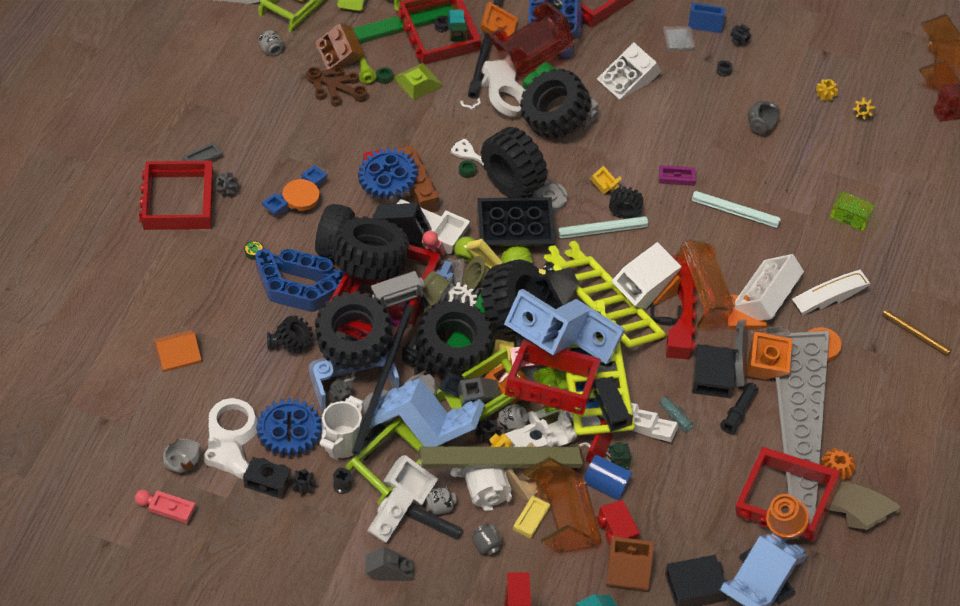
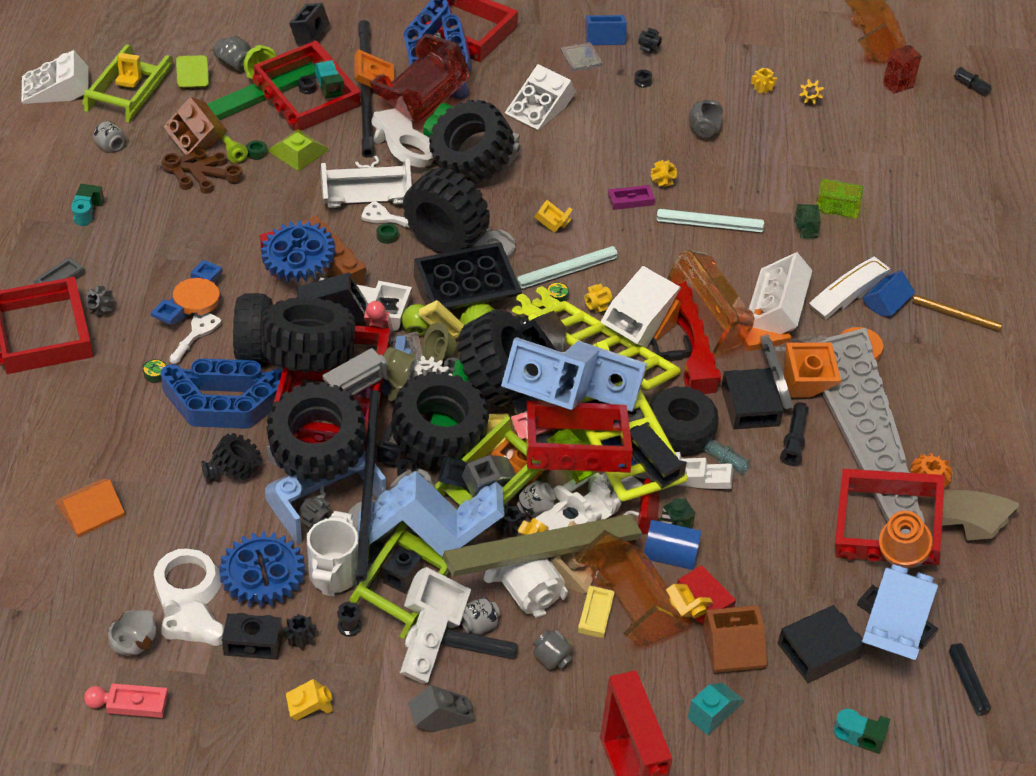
camera: 15 degrees left, 5 degrees down
(237, 97) = (85, 202): none -> leg
(295, 224) = (197, 332): none -> white piece
(295, 534) = (308, 699): none -> yellow bracket
(392, 450) = (402, 569): none -> black brick
(447, 232) = (389, 303): none -> black bush
(458, 123) = (365, 184): none -> white windscreen
(588, 247) = (558, 291): none -> tile
(598, 525) = (685, 603): none -> yellow bracket
(617, 259) = (598, 298): none -> yellow gear
(622, 209) = (587, 225): black tyre -> none
(653, 364) = (695, 410): none -> black tyre
(710, 160) = (663, 173): none -> yellow gear
(817, 225) = (807, 220): none -> clear green brick
(863, 304) = (889, 294): none -> blue brick

